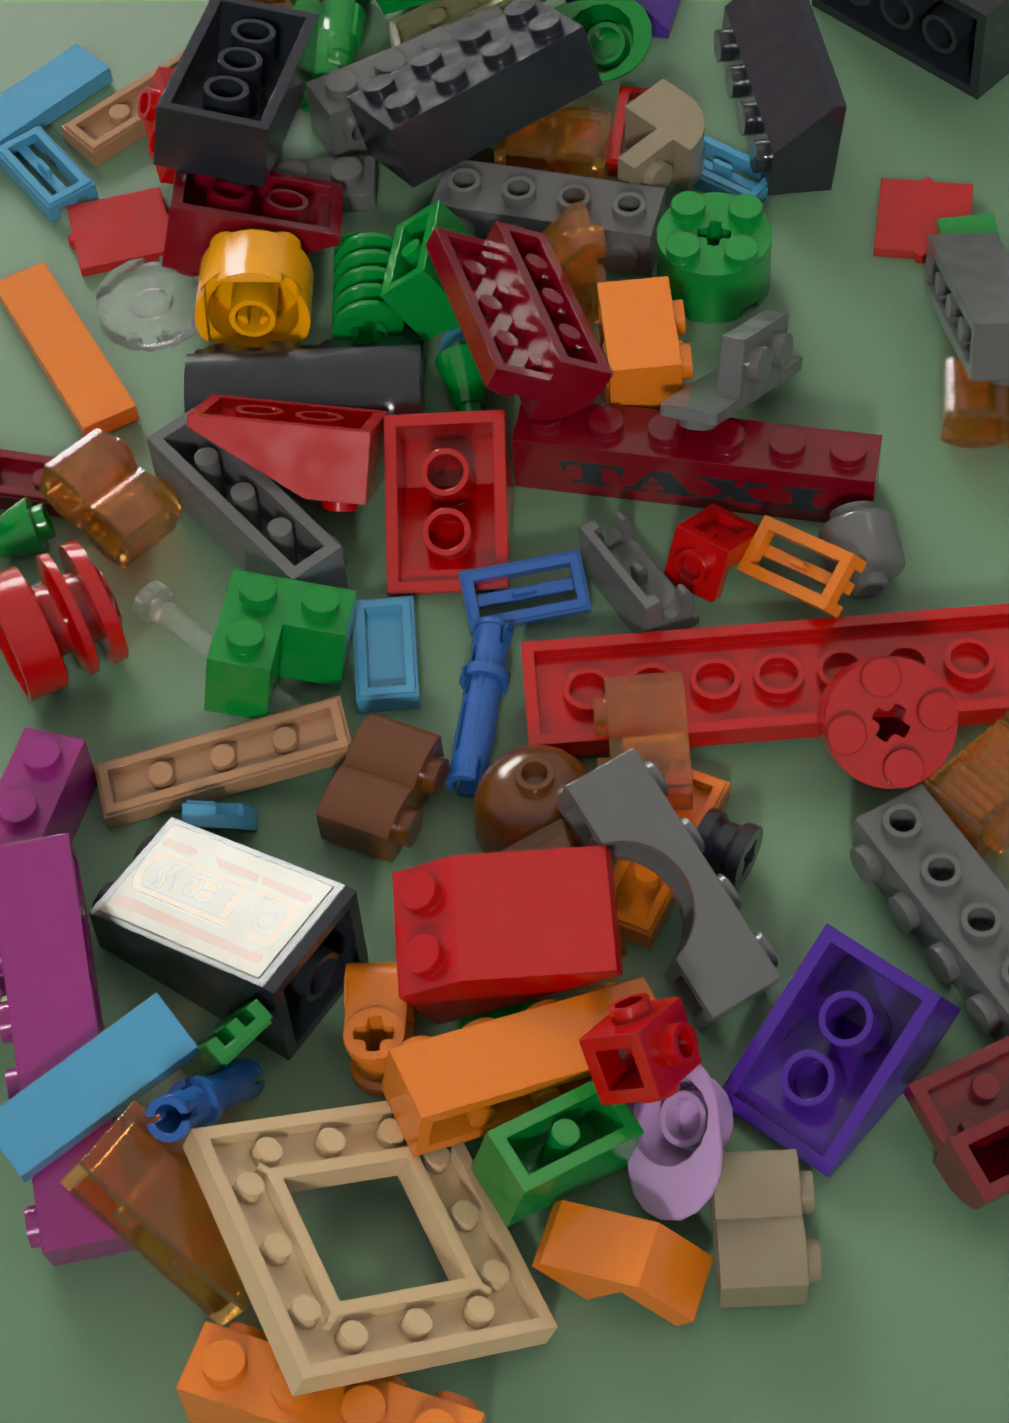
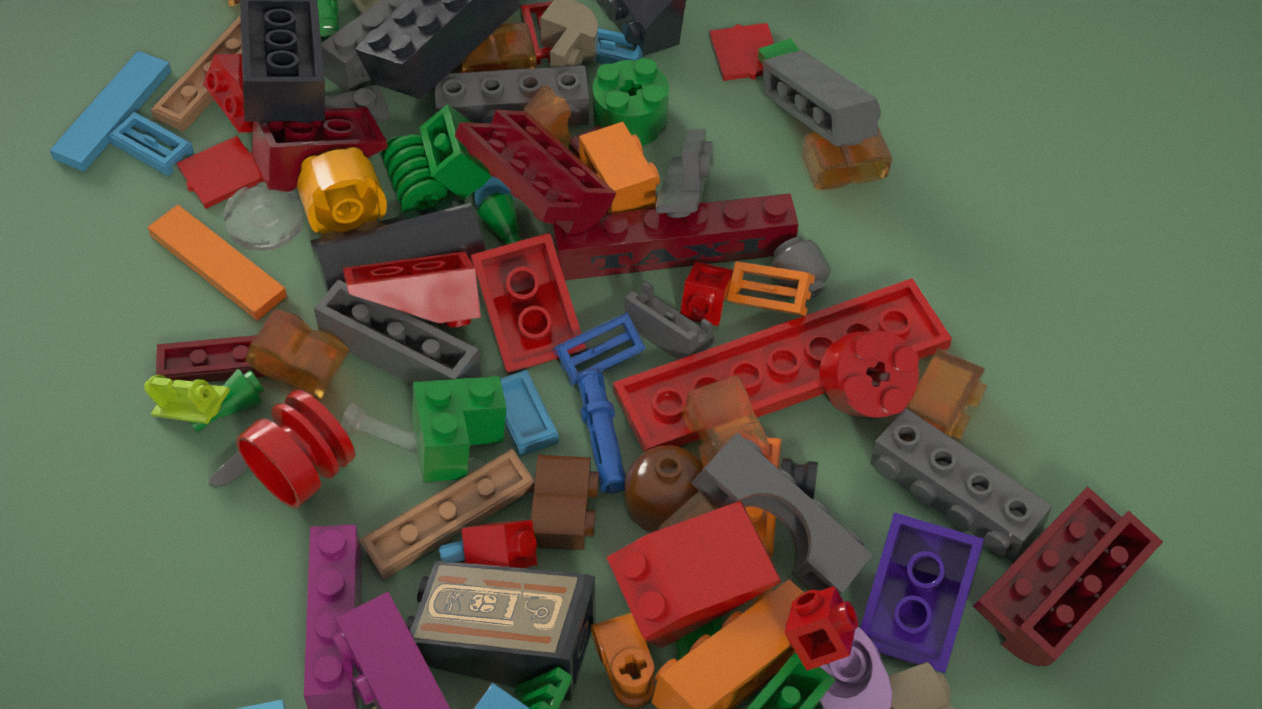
camera: 25 degrees left, 0 degrees up
(268, 820) = (501, 544): none -> red brick

